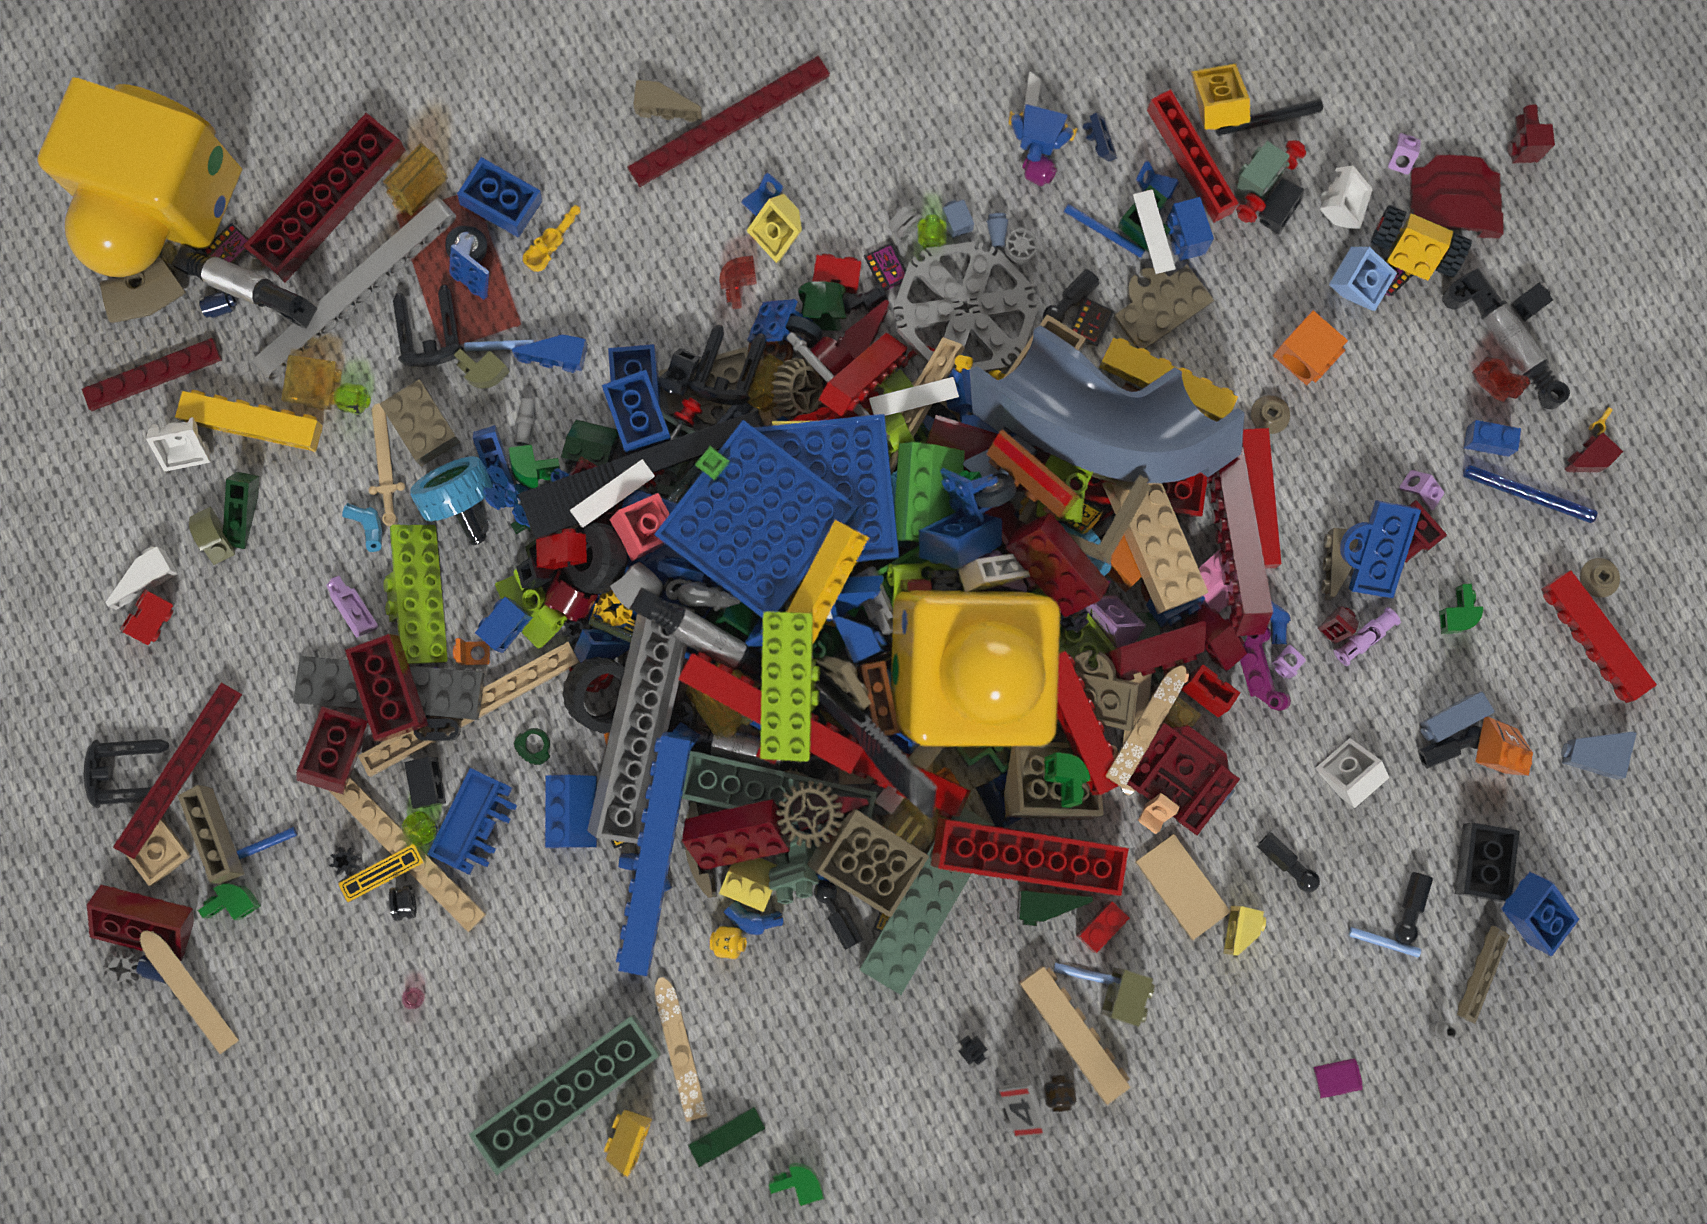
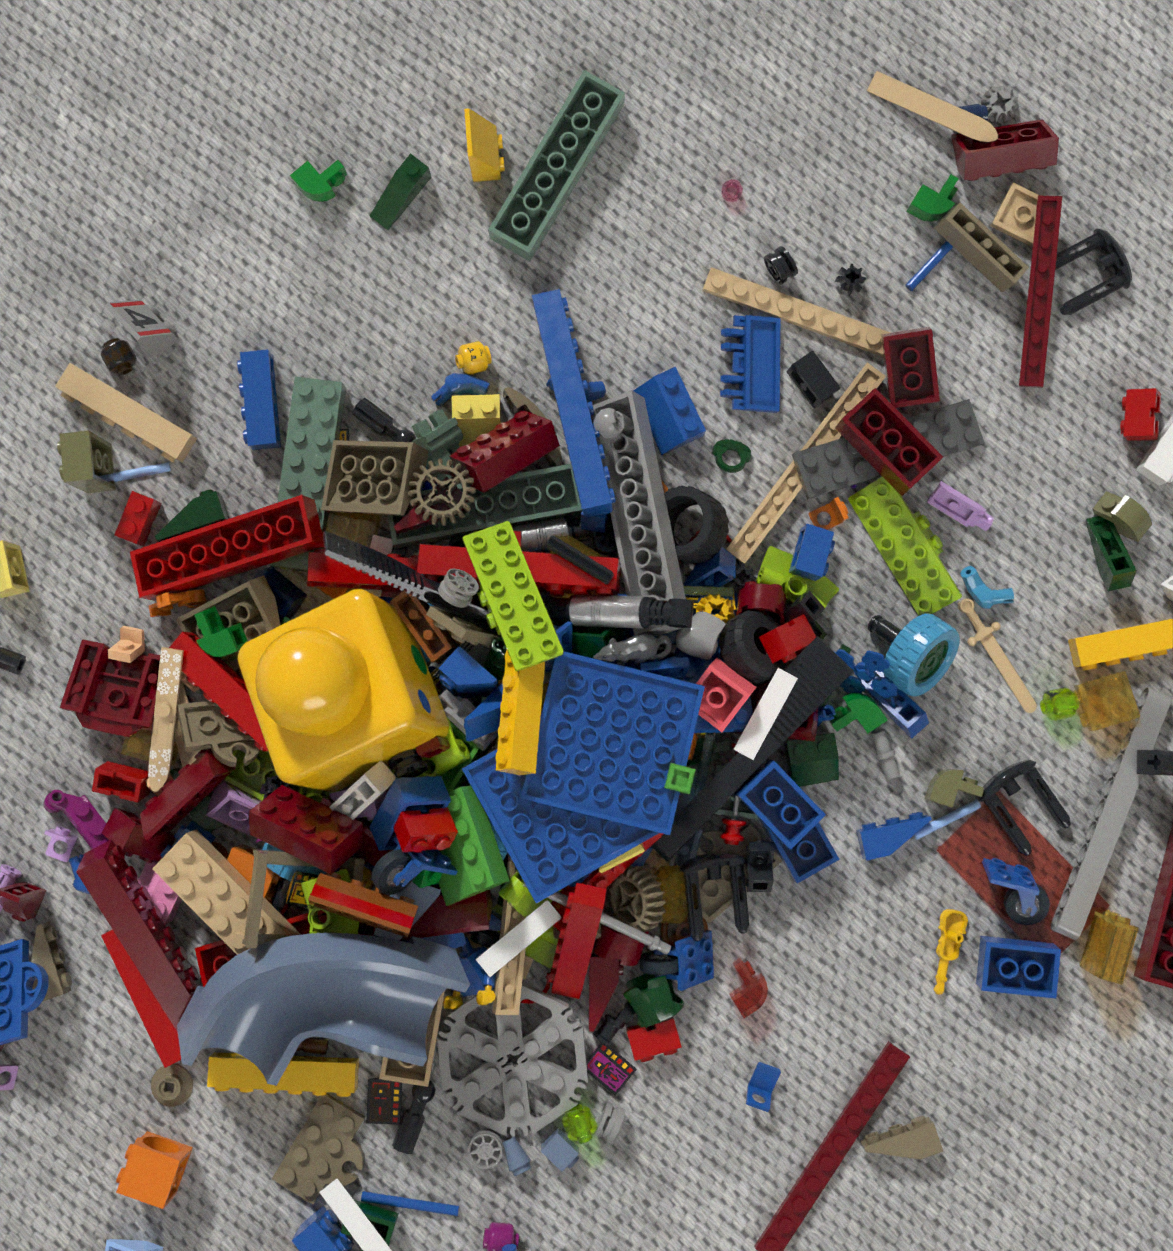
camera: 160 degrees right, 5 degrees up
(380, 873) = (813, 283): sticker -> none
(419, 828) = (797, 336): clear neon green head -> none
(420, 423) = (983, 708): dark tan brick -> none
(437, 735) = (822, 424): black beam -> none
(630, 813) = (608, 423): none -> light grey piece
(679, 1050) = (475, 249): tan piece -> none
(712, 691) = (579, 560): none -> black axle
(776, 226) = (734, 1060): light yellow slope -> none
(833, 713) = (458, 589): none -> light grey wheel
(943, 991) = (260, 400): none -> blue brick
(952, 511) = (425, 831): none -> red brick
(972, 1050) = (211, 359): black gear -> none
(1092, 833) = (167, 600): none -> orange piece
(1182, 887) = (80, 589): tan tile -> none

